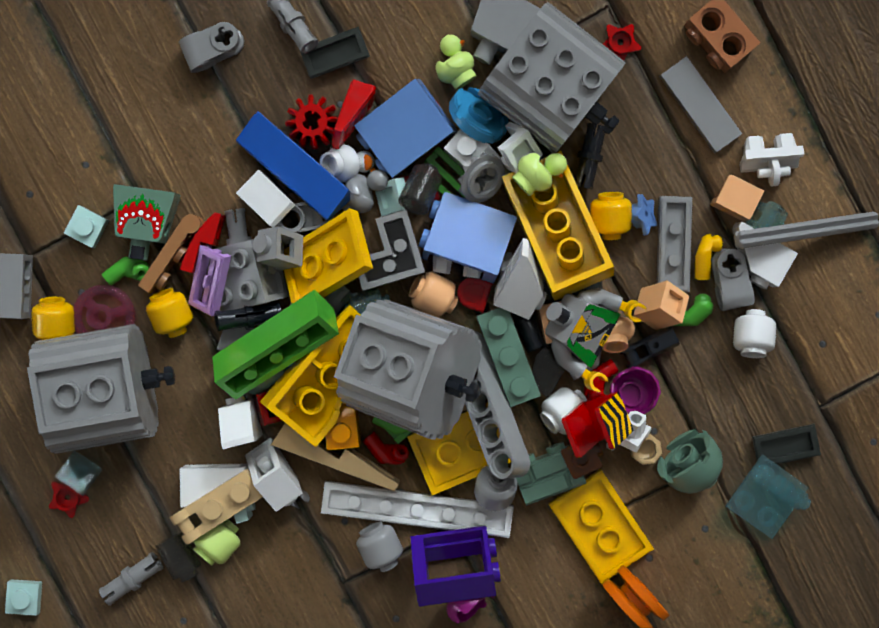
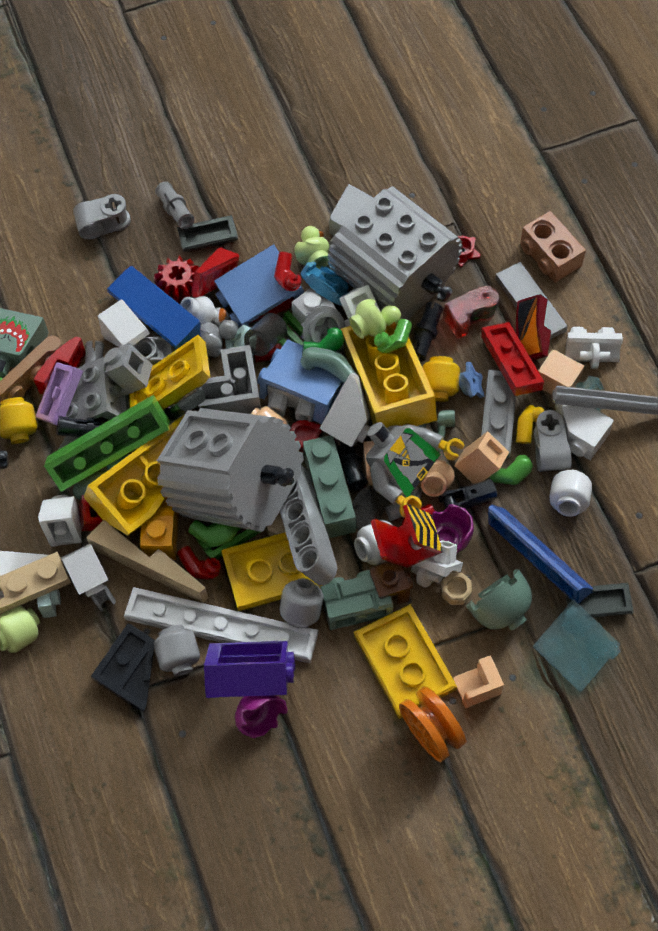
camera: 10 degrees right, 25 degrees down
(334, 565) = (128, 667): none -> black wing
(351, 295) = (186, 404): none -> pearl dark grey tile
(433, 121) = (283, 274): none -> red arm
(486, 204) = (332, 341): none -> green arm
(494, 221) = (327, 360): none -> sand green arm
(564, 197) = (395, 341): none -> bright green arm
(620, 259) = (446, 419): none -> sand green hand
(645, 116) = (469, 308): none -> clear red leg
(674, 544) = (480, 683): none -> light nougat panel
(686, 185) = (512, 359): none -> red plate
(703, 141) = (531, 328): none -> slope
(727, 404) = (538, 554): none -> blue slope

